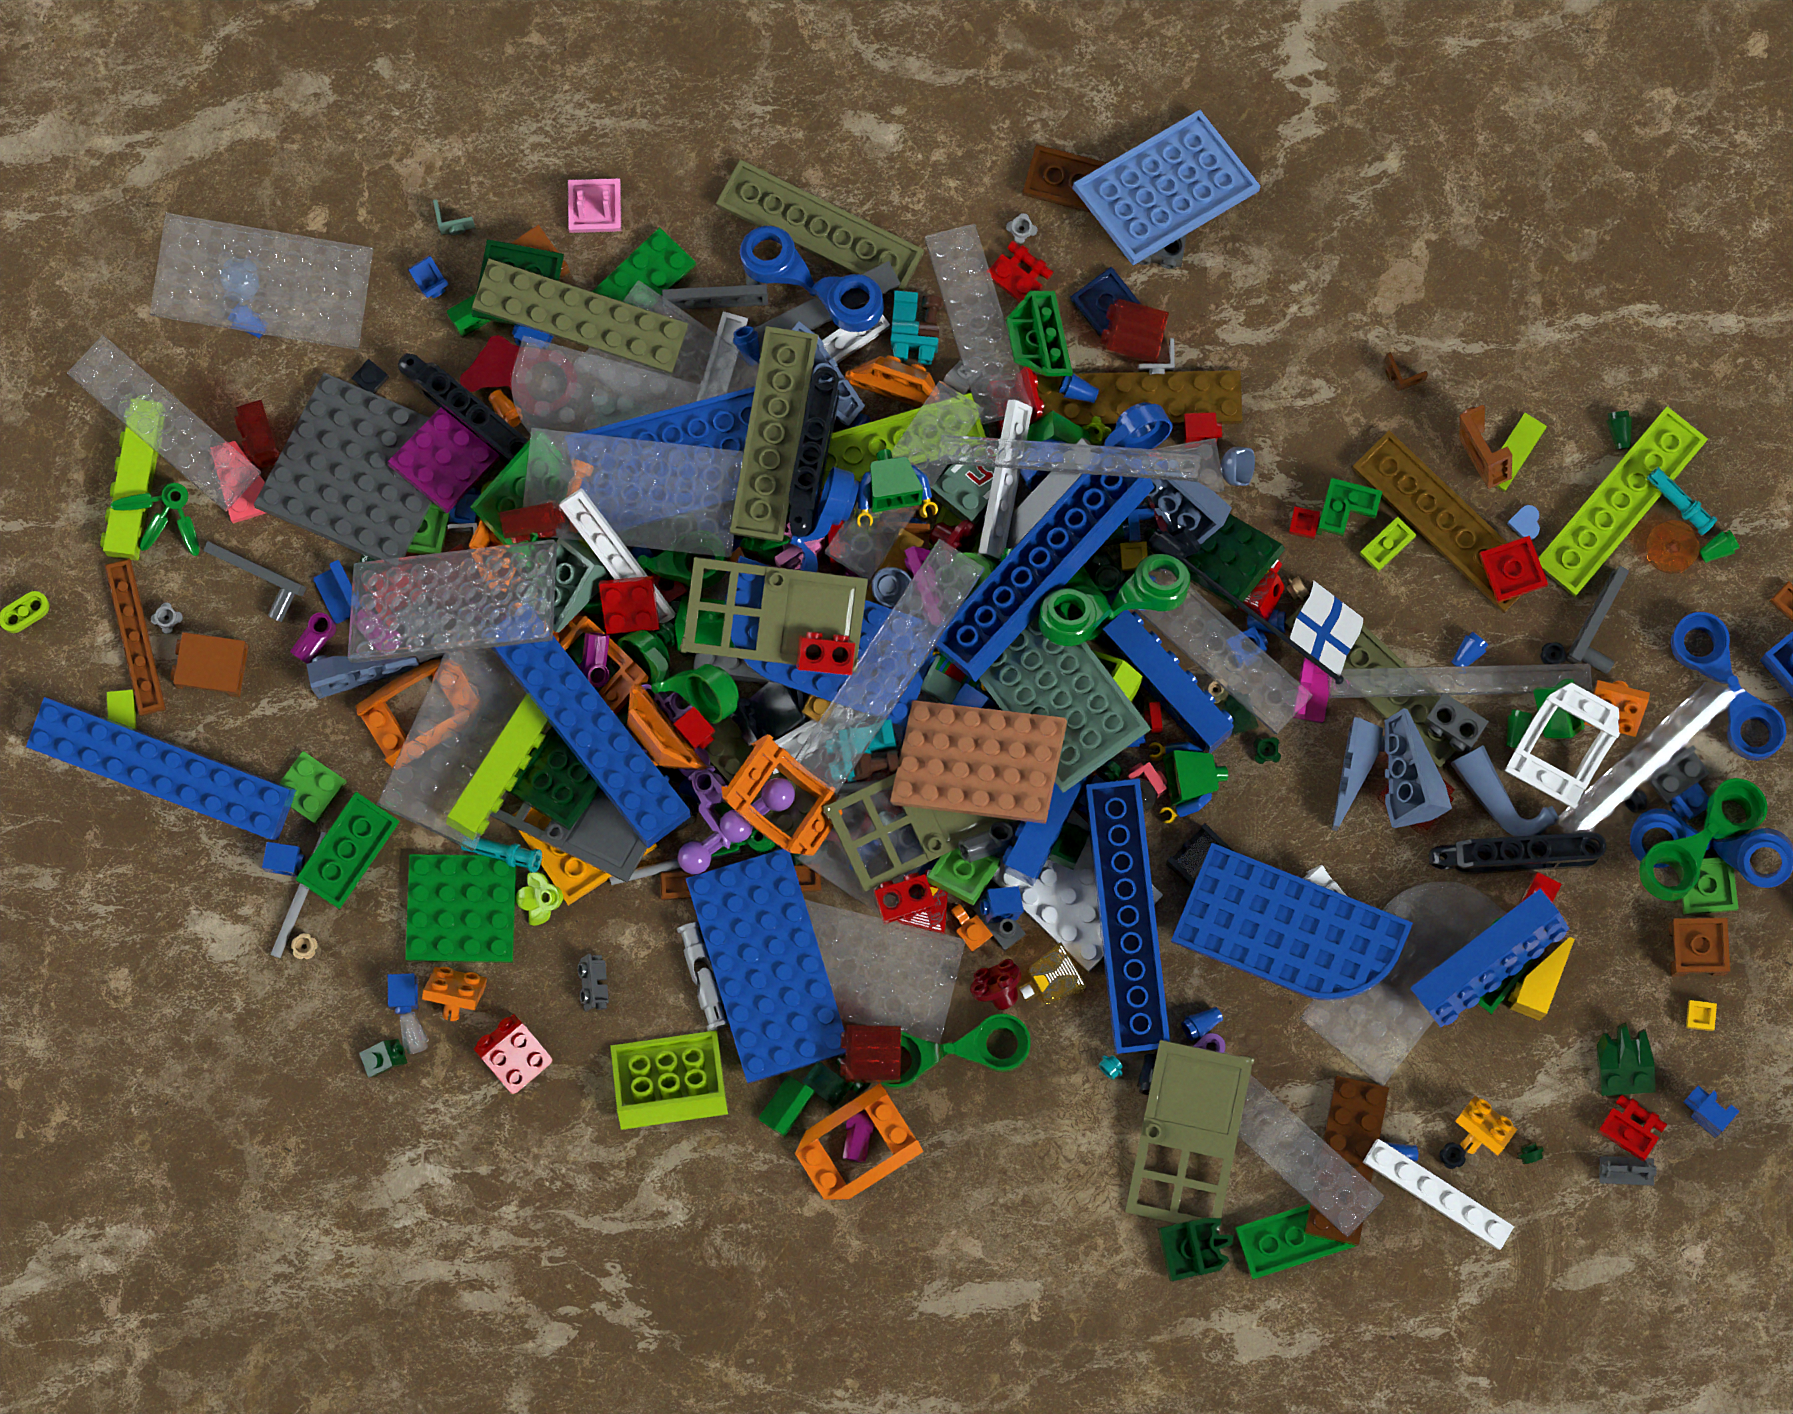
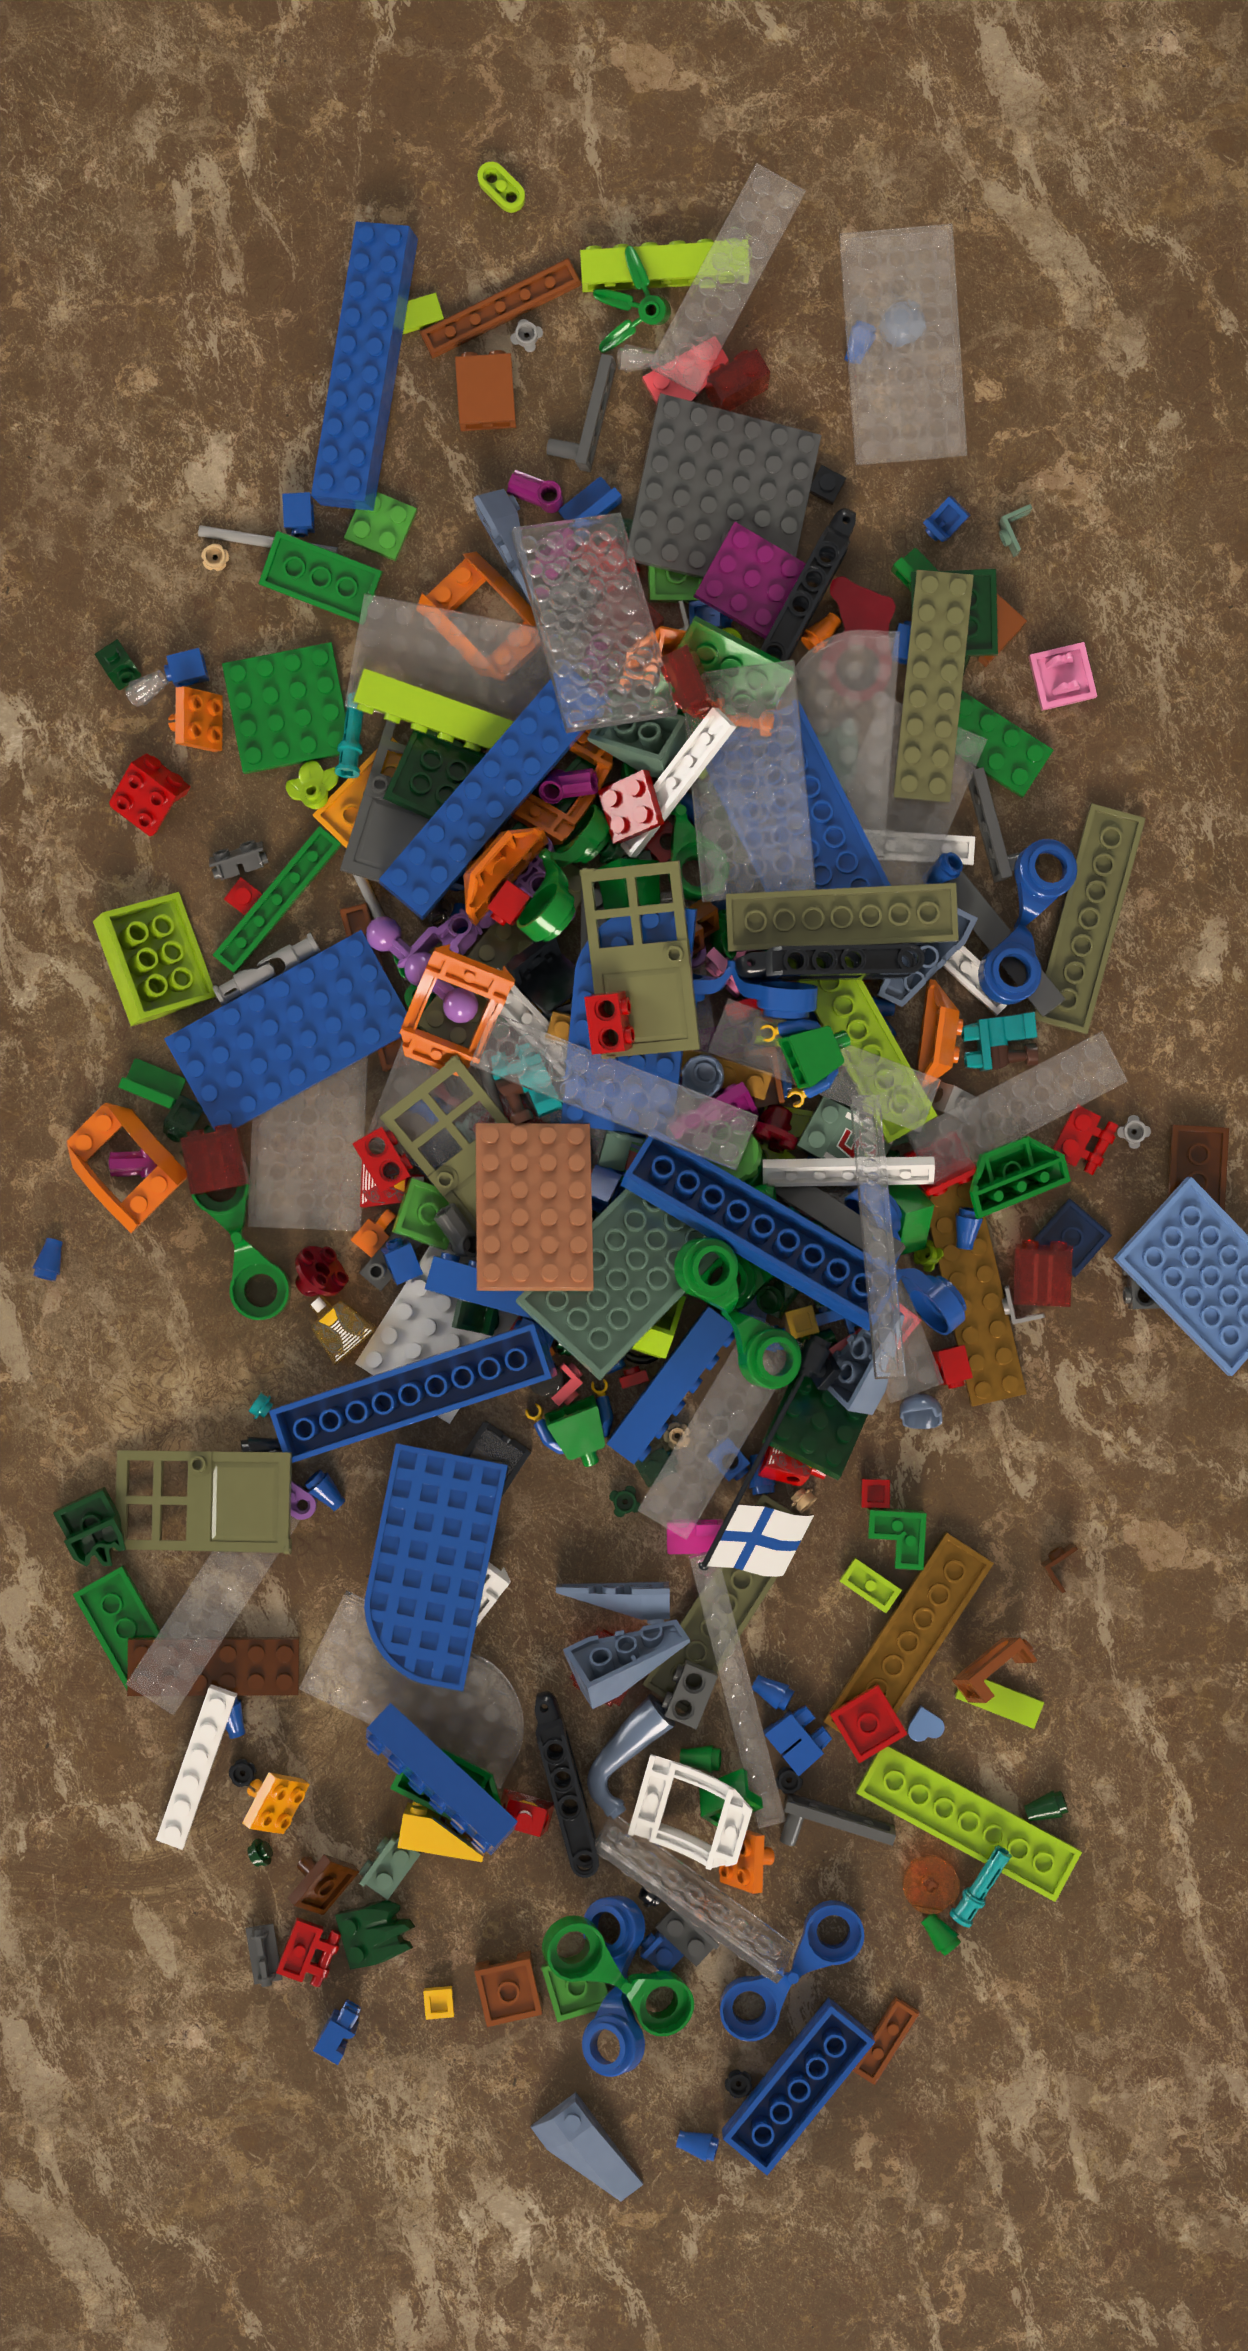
camera: 75 degrees right, 10 degrees up
(212, 524) = (633, 358): none -> clear cone
(629, 985) = (243, 896): none -> red plate
(639, 954) = (277, 899): none -> green plate
(933, 1238) = (49, 1260): none -> blue cone
(1519, 640) = (795, 1742): none -> blue hips
(1565, 1036) = (388, 1867): none -> sand green bracket
(1568, 1098) = (322, 1883): none -> reddish brown tile

